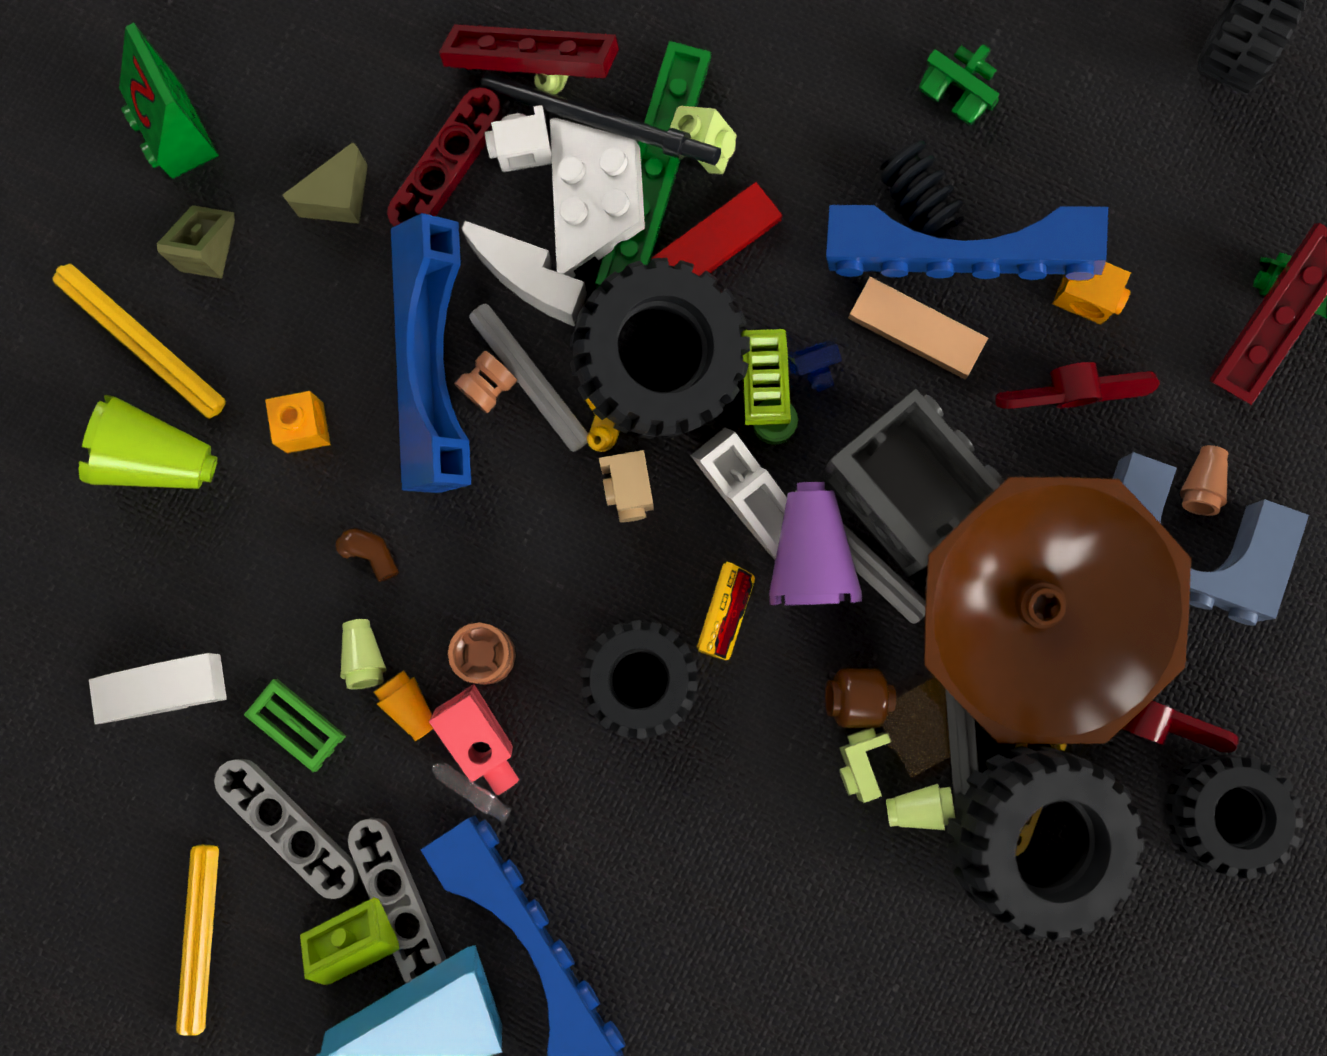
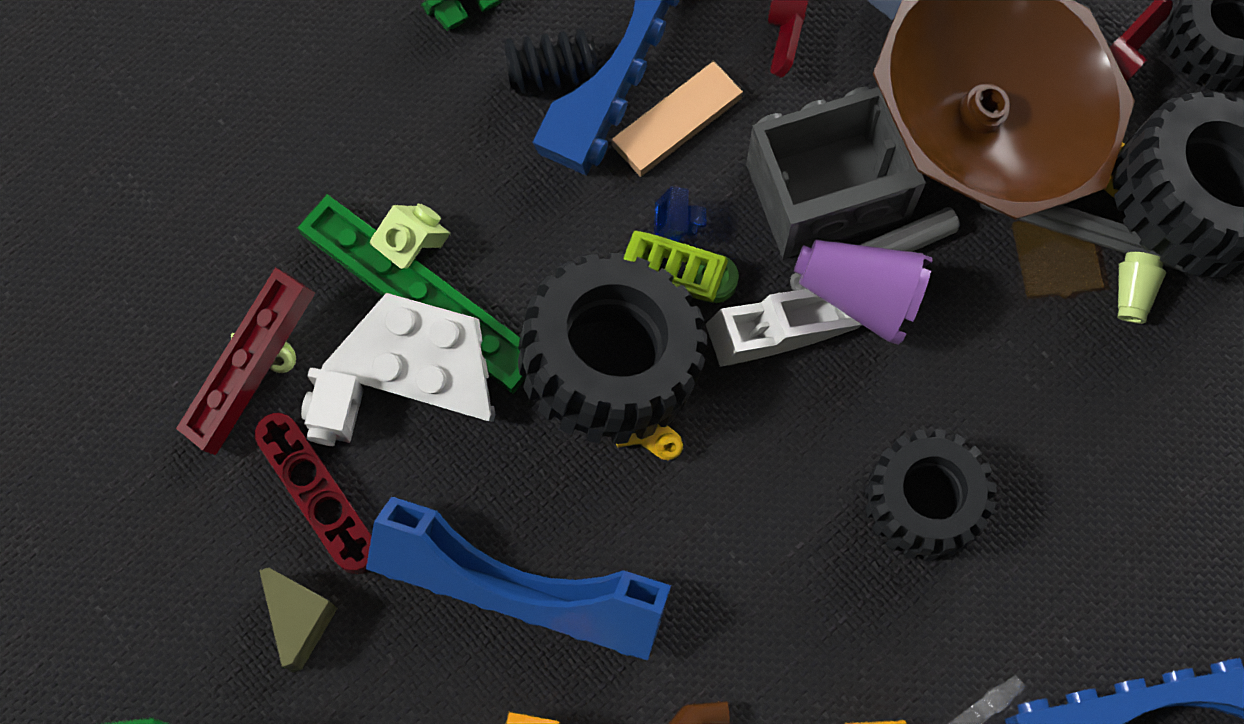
camera: 70 degrees left, 10 degrees down
(467, 721) = (932, 679): coral torso -> none
(478, 389) = (566, 535): nougat wheel -> none
(481, 654) = (849, 640): nougat wheel -> none
(527, 272) = (470, 452): white slope -> none
(529, 377) = (576, 492): light grey axle -> none
(628, 486) = (729, 434): tan brick -> none
(673, 142) = (411, 253): black bar -> none
(724, 231) = (509, 256): red tile -> none
(726, 611) = (884, 395): slope -> none
(858, 774) = (1082, 327): yellowish green bracket -> none
(859, 698) = (1016, 300): reddish brown head -> none

